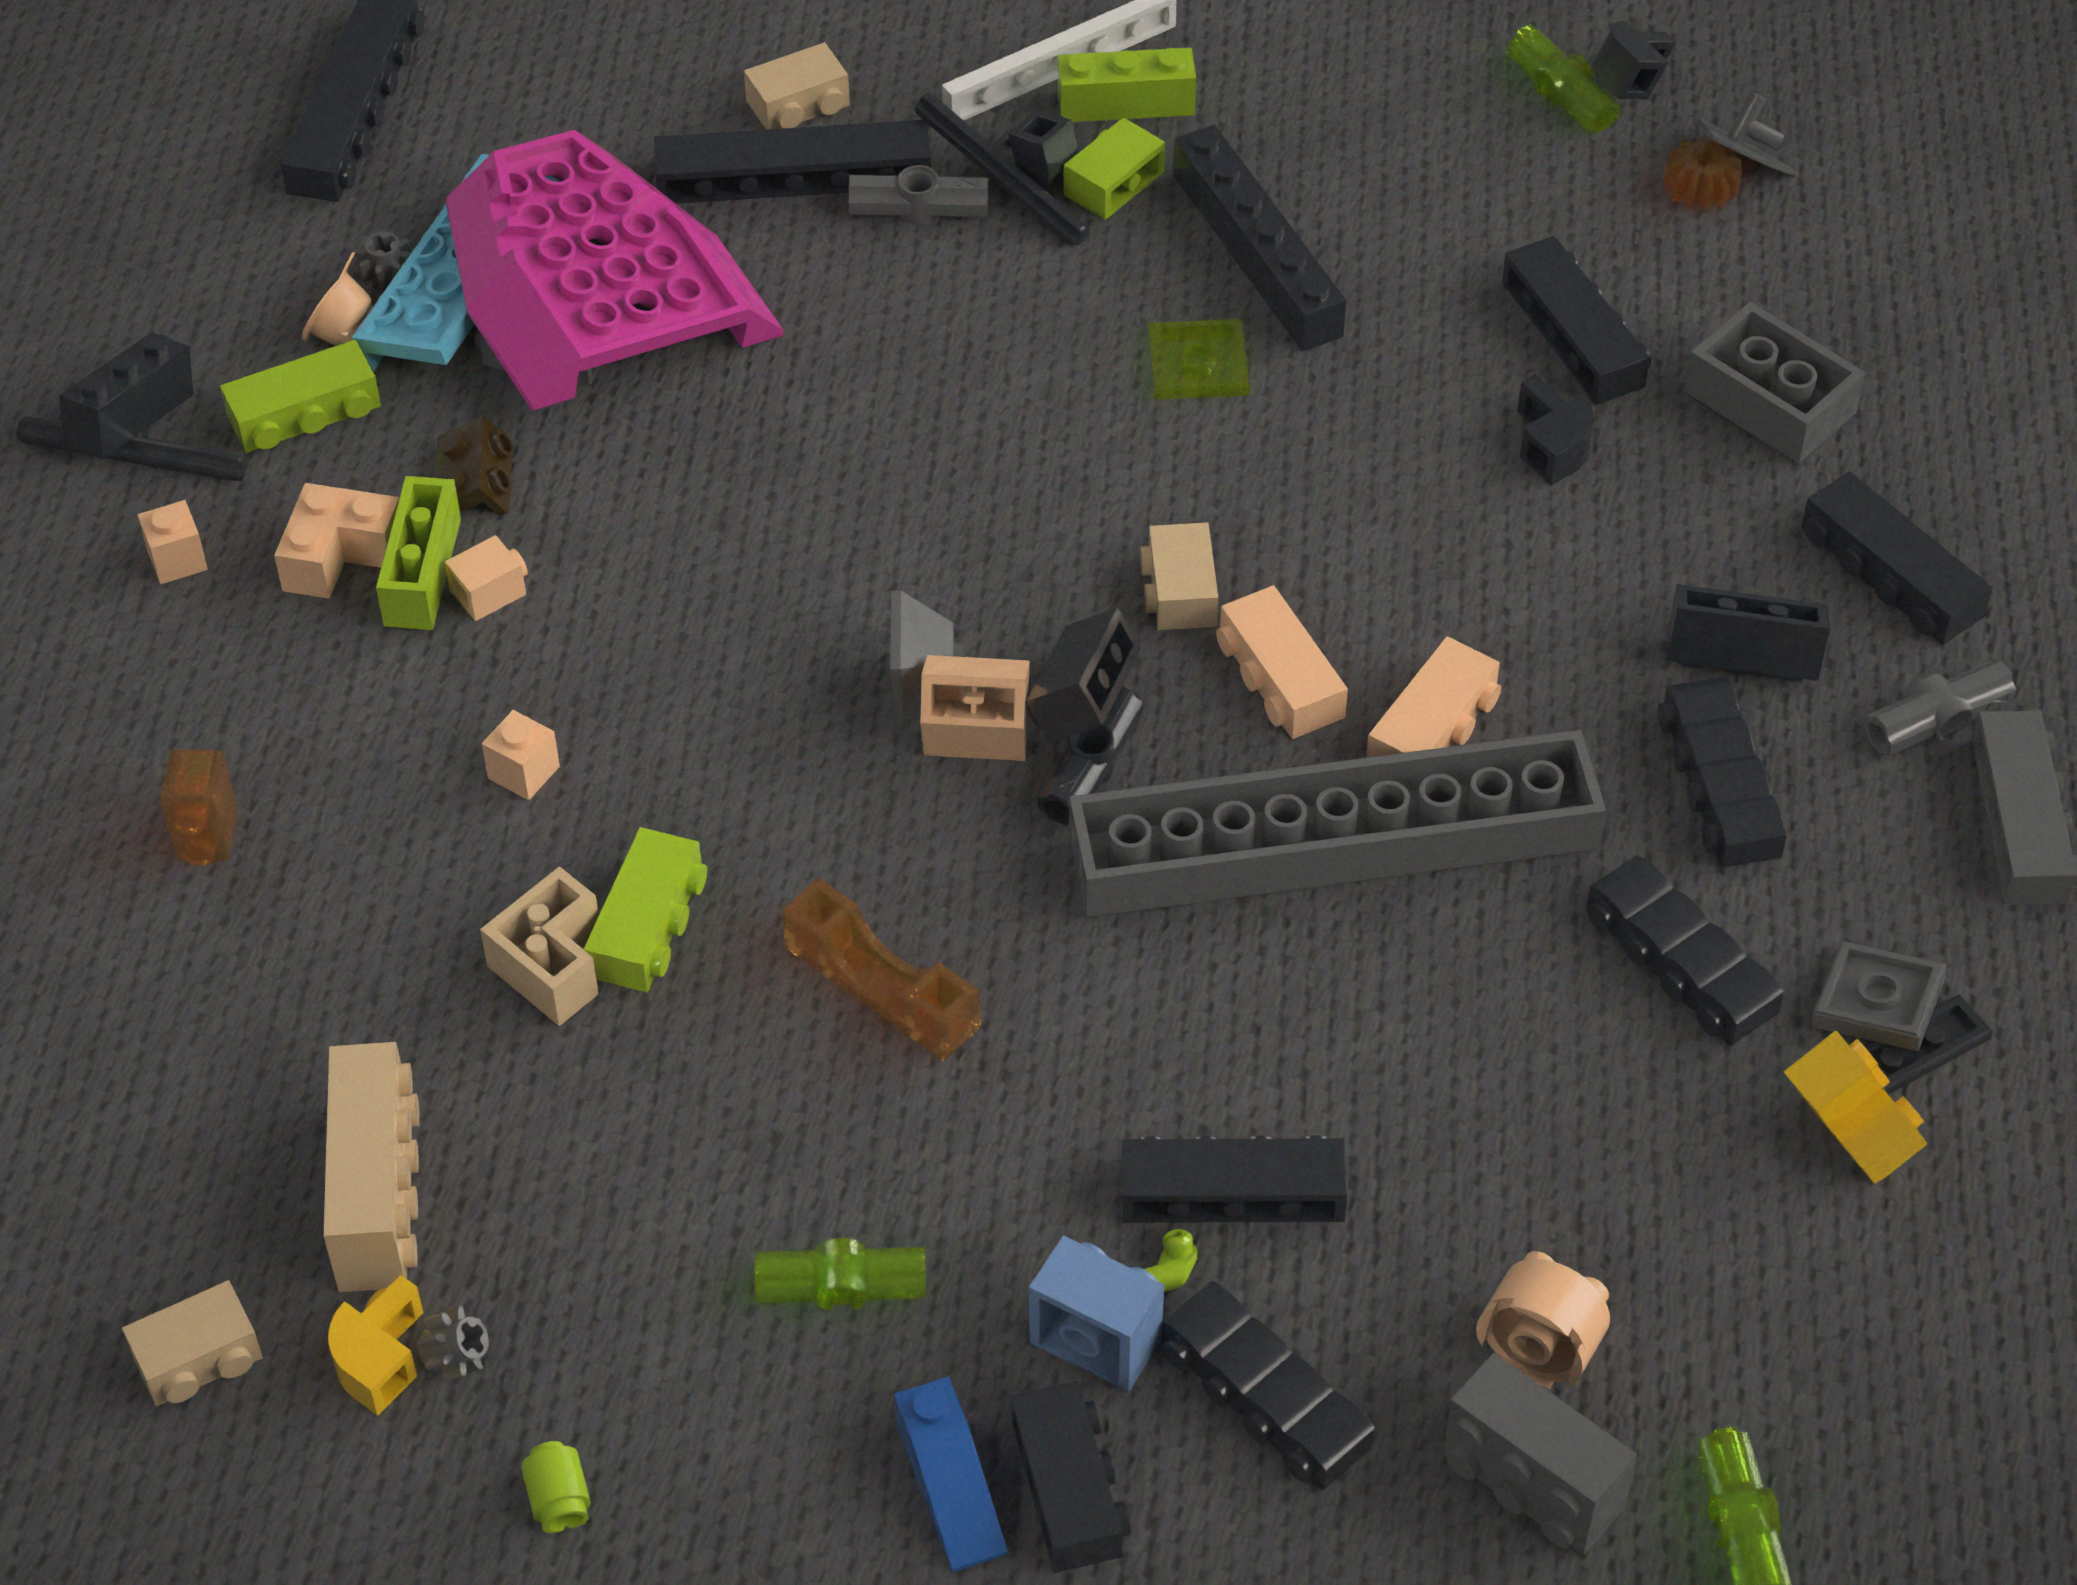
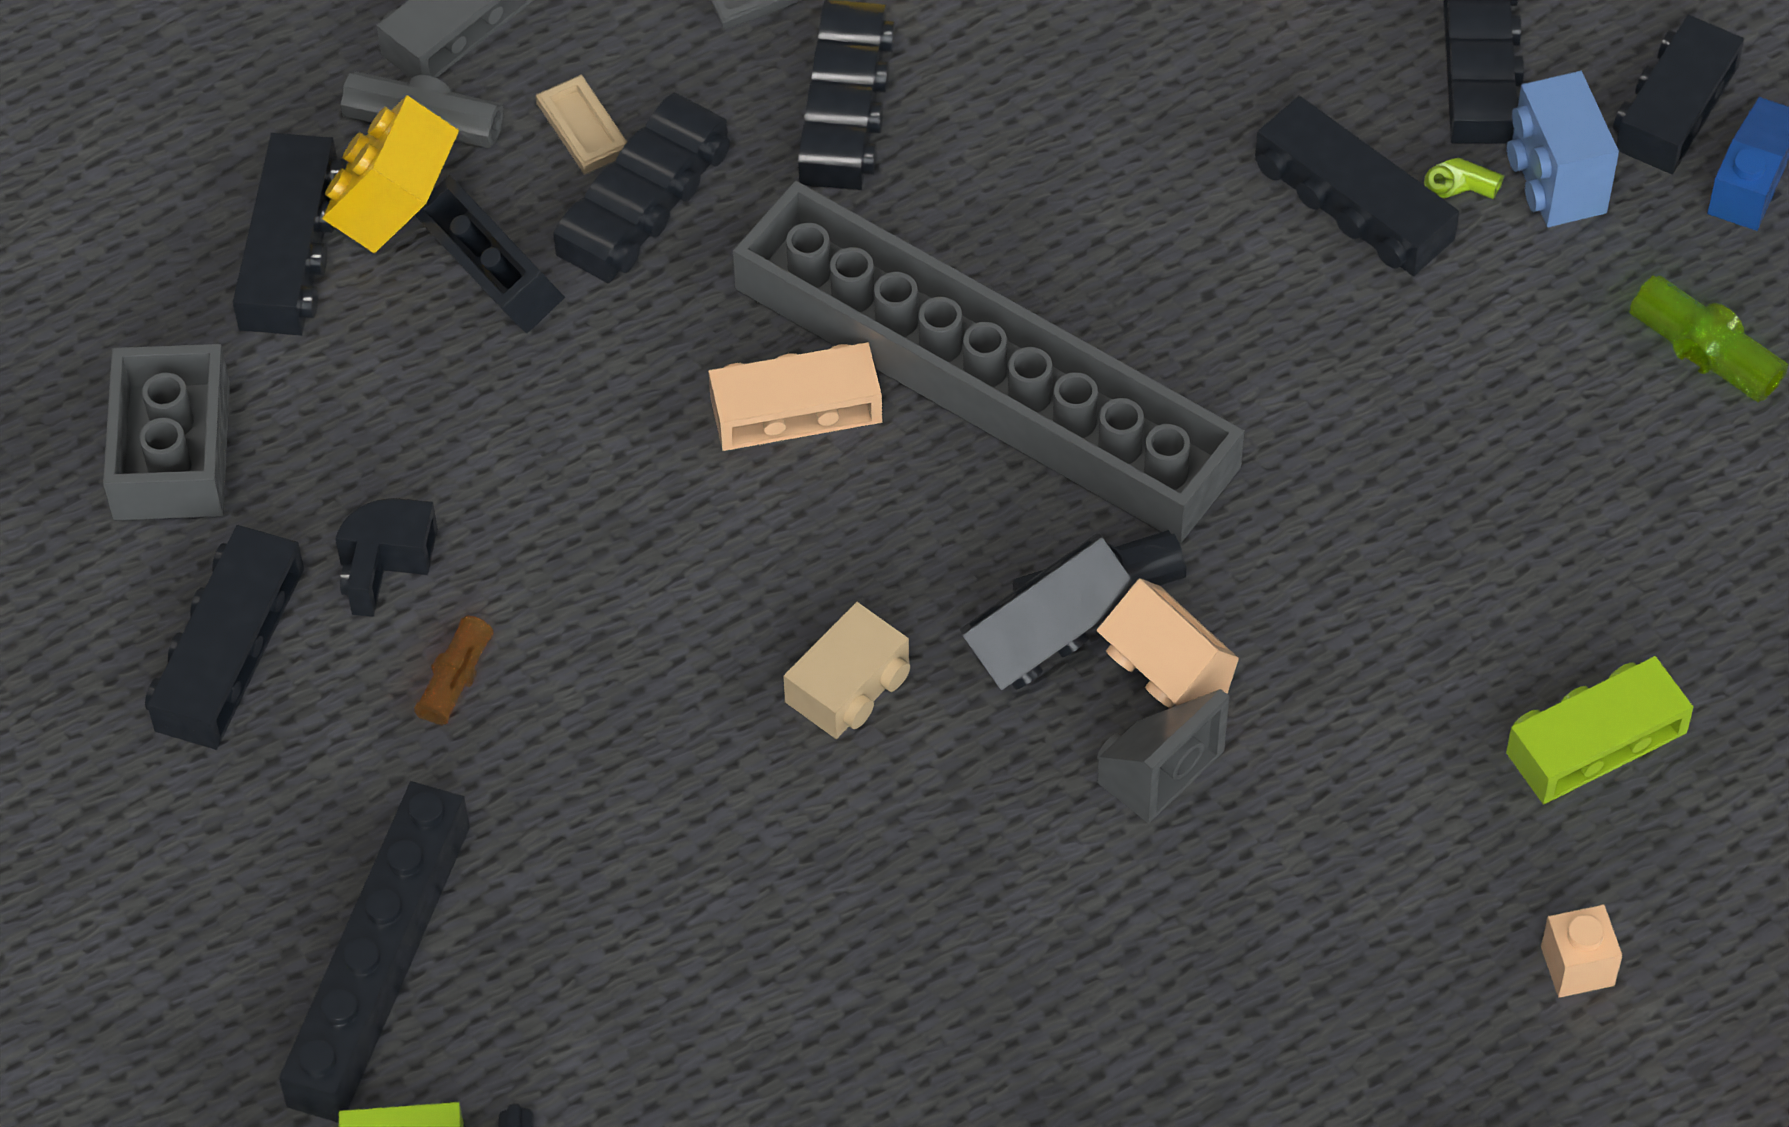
camera: 135 degrees left, 5 degrees up
(540, 945) = (1719, 755): tan brick -> none
(835, 940) = (1466, 559): clear orange arch -> none
(1198, 359) = (570, 890): clear neon green tile -> none
(1281, 662) = (860, 530): light nougat brick -> none
(1423, 409) = (454, 670): none -> clear orange pin
(1831, 795) = (582, 123): none -> tan tile
(1873, 606) = (388, 173): none -> yellow brick

